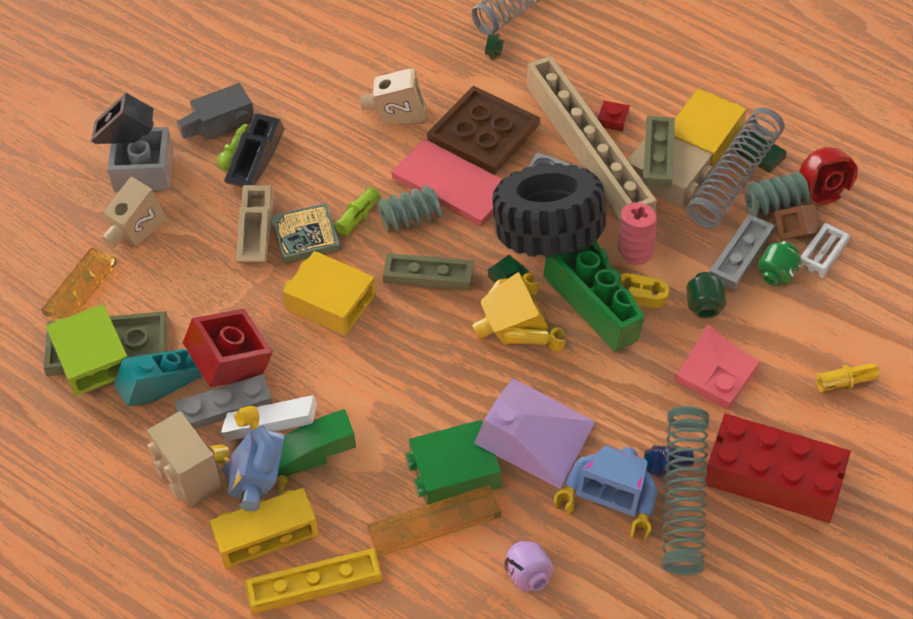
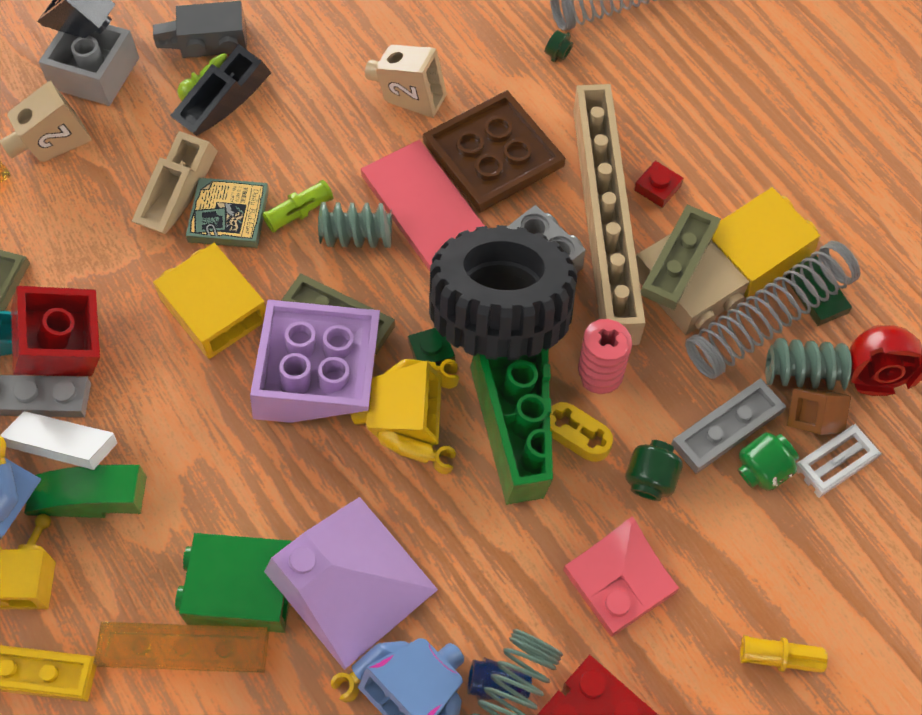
camera: 20 degrees right, 10 degrees up
(432, 305) = (313, 361): none -> lavender slope

